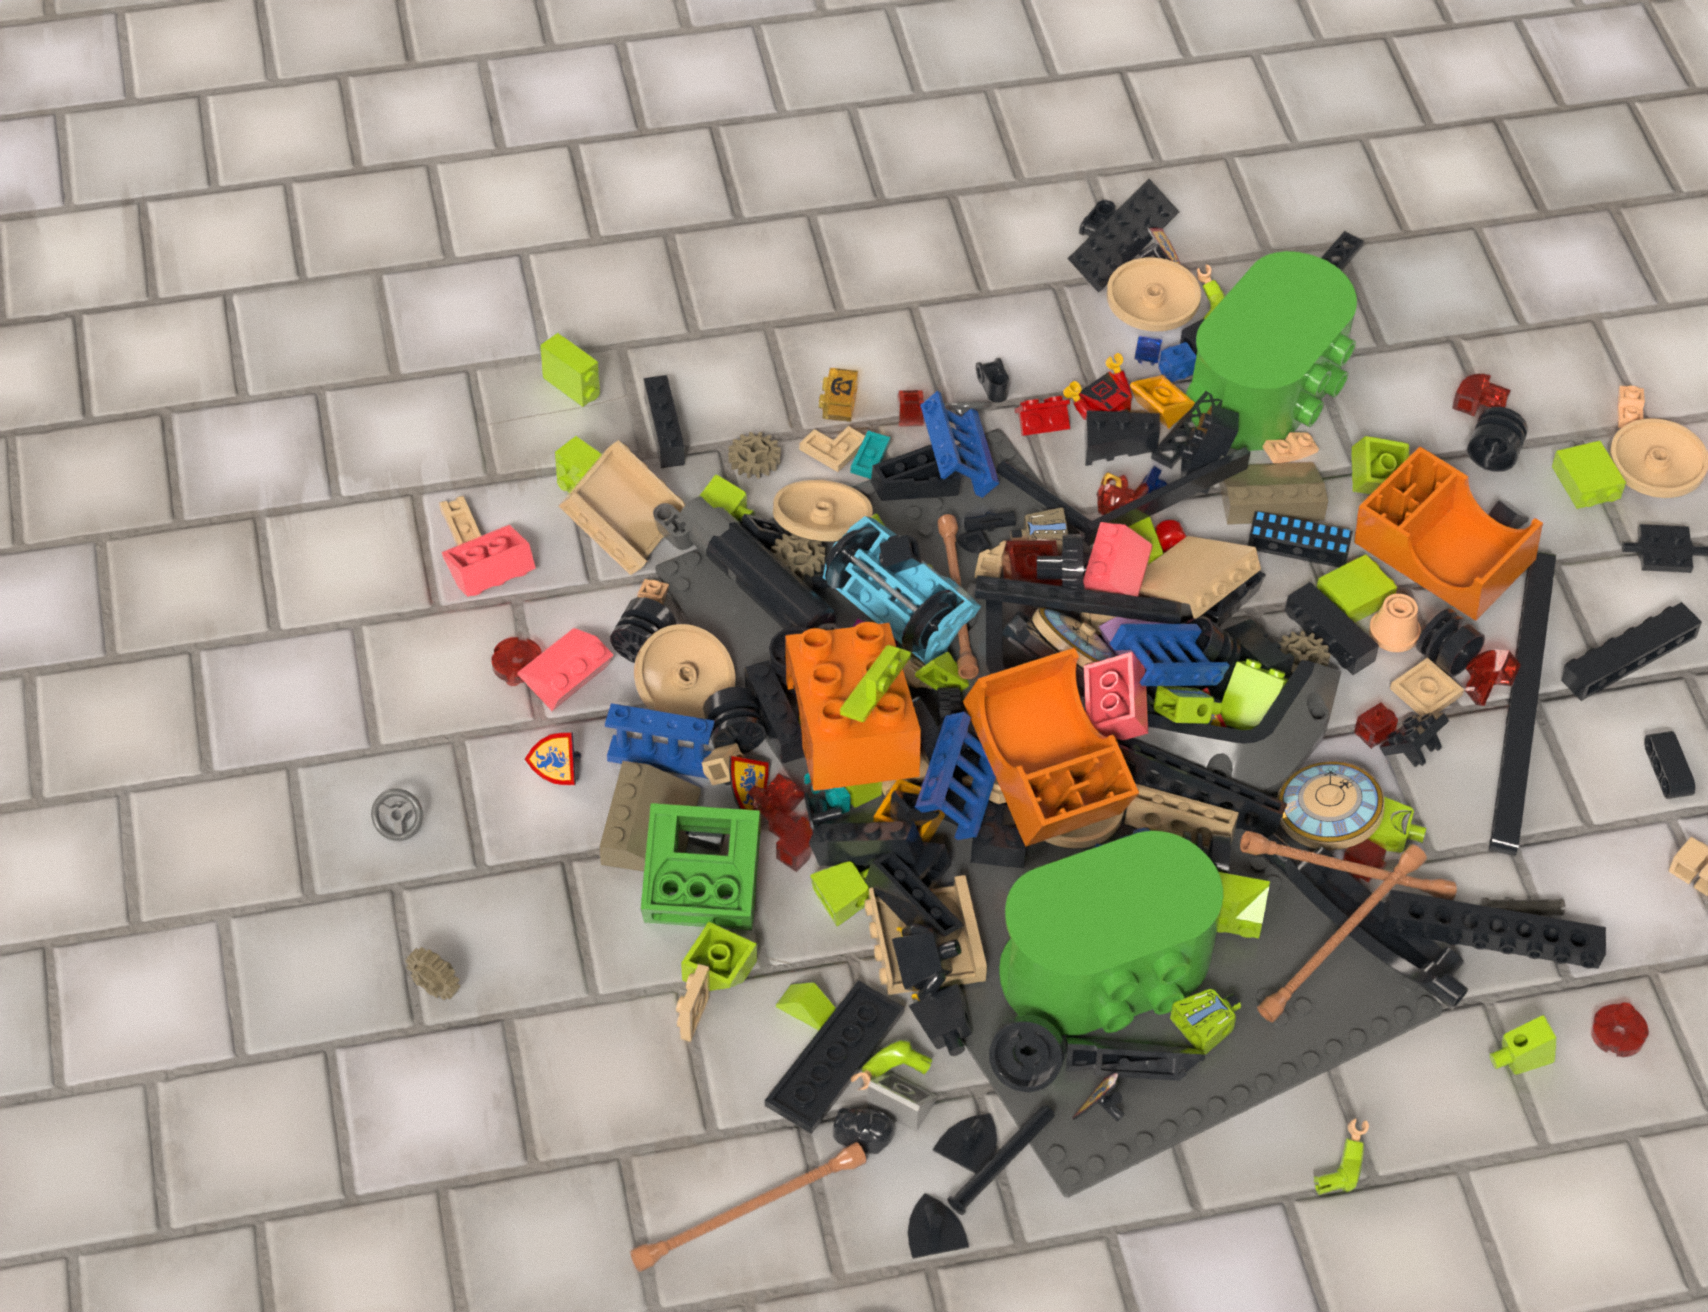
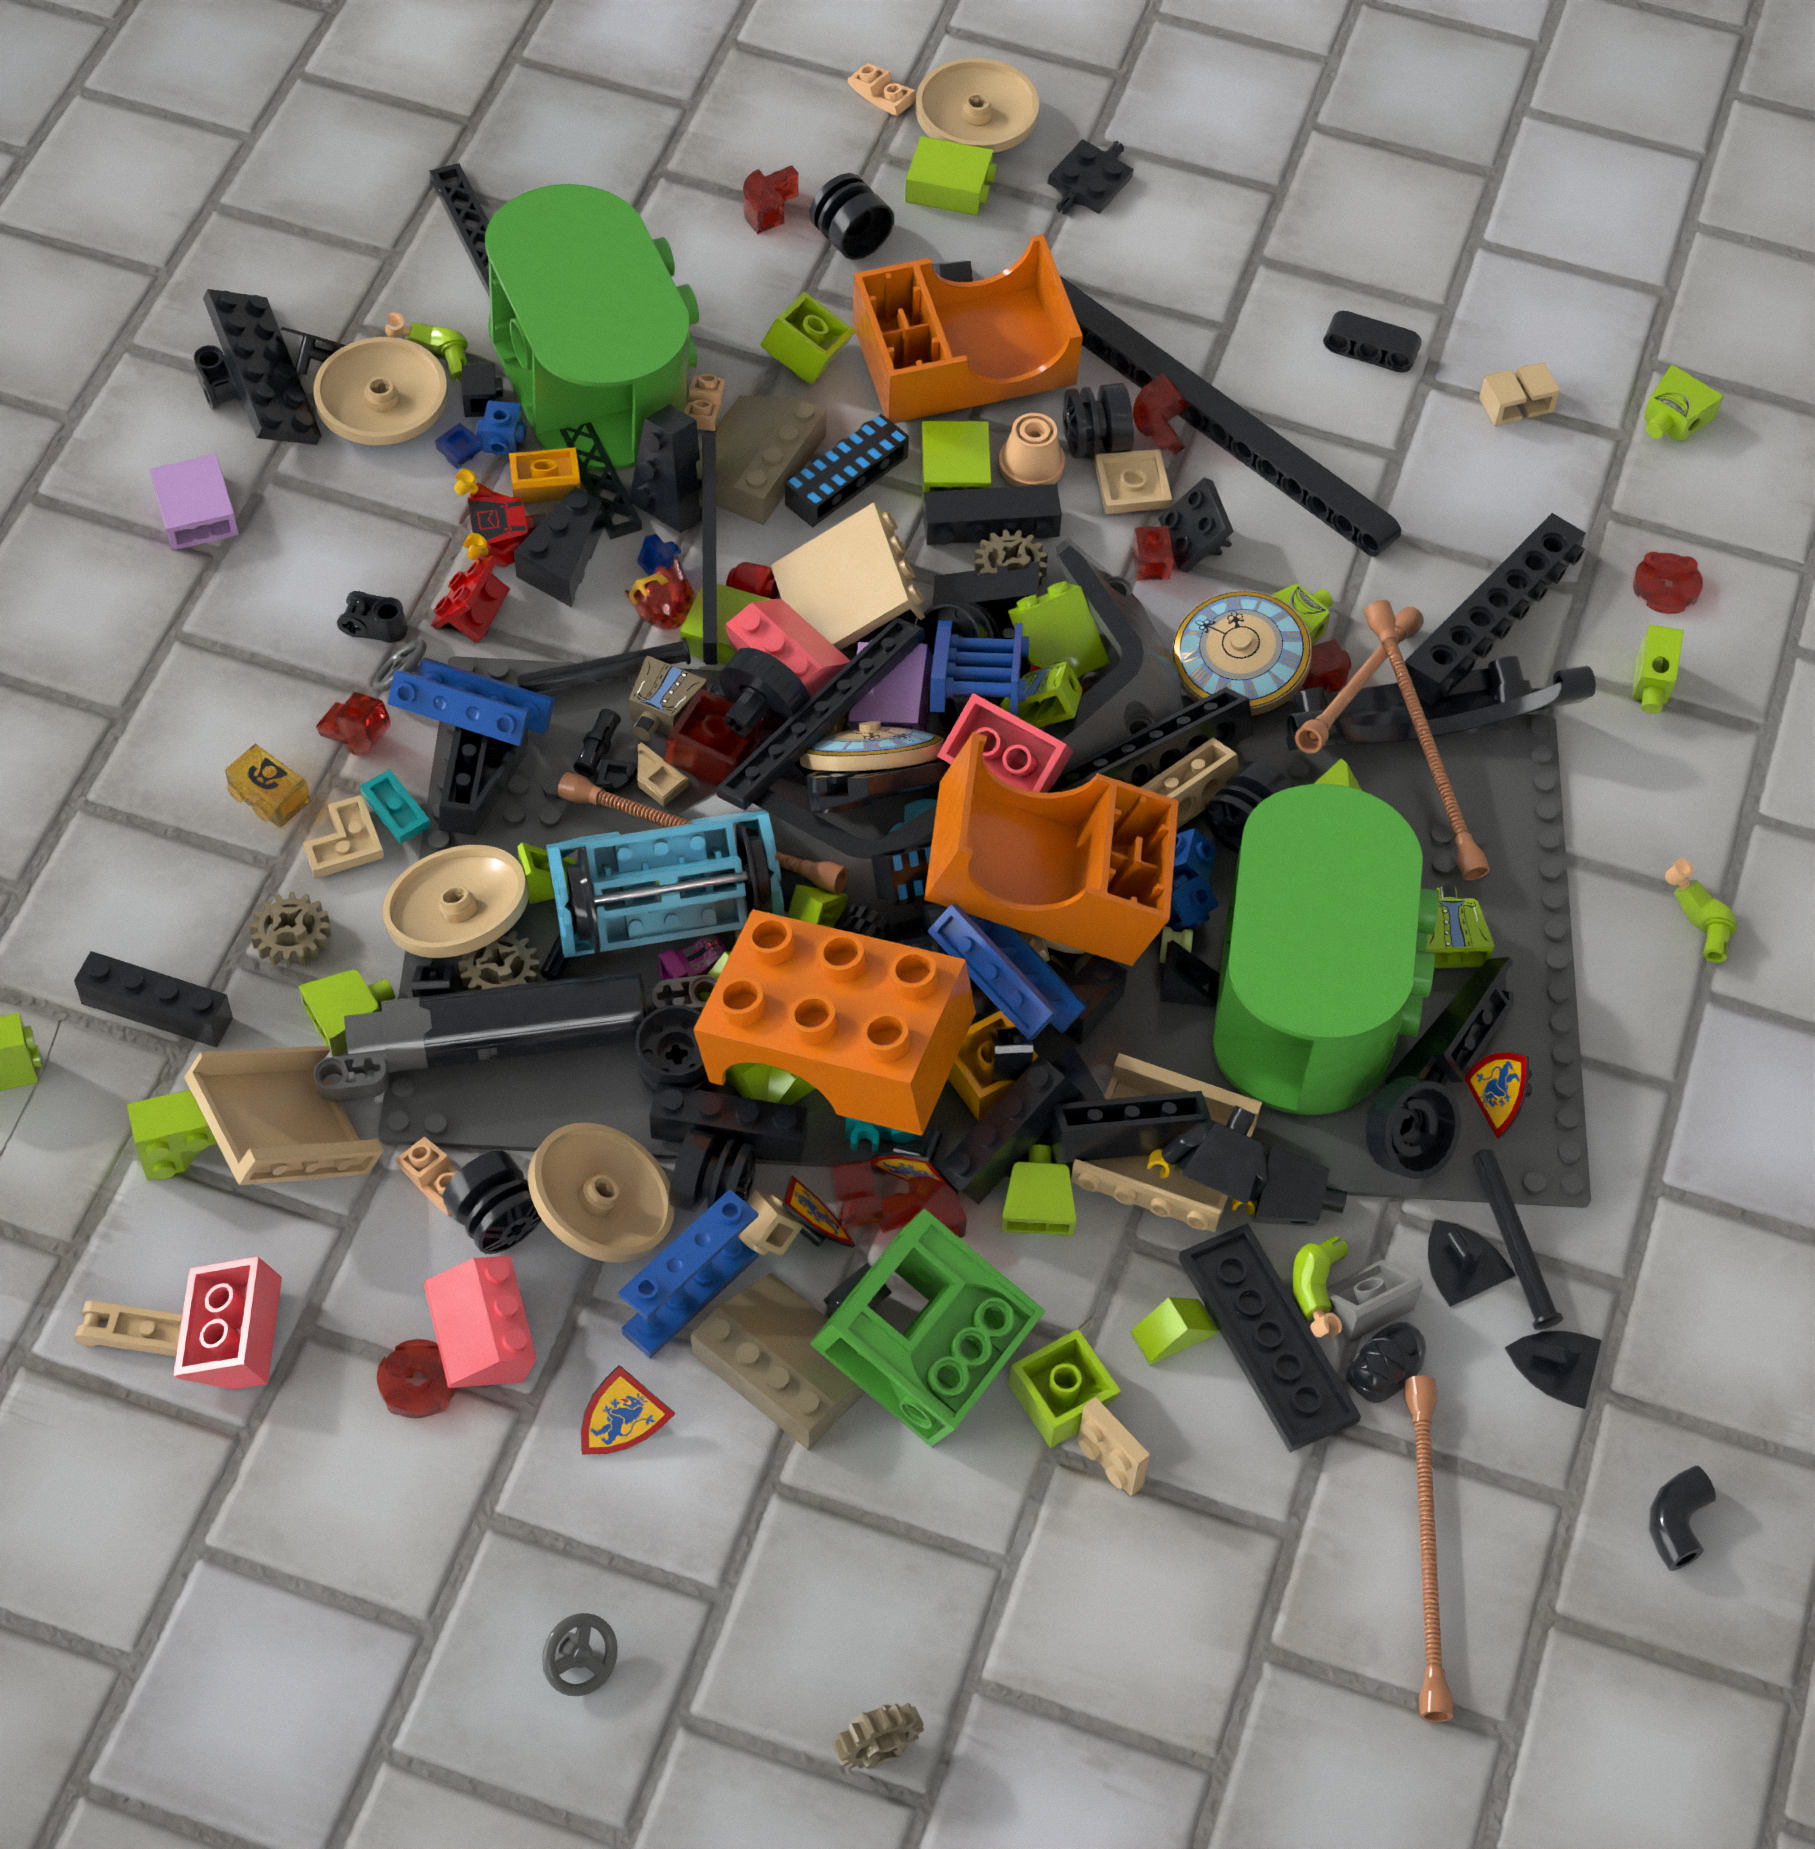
camera: 60 degrees left, 5 degrees up
(875, 683) = (877, 959): lime bracket -> none
(900, 553) = (640, 843): black brick -> none
(1004, 259) = (194, 502): none -> lavender brick
(1535, 907) = (1466, 579): clear smoke pin -> none
(1630, 651) = (1207, 284): black brick -> none

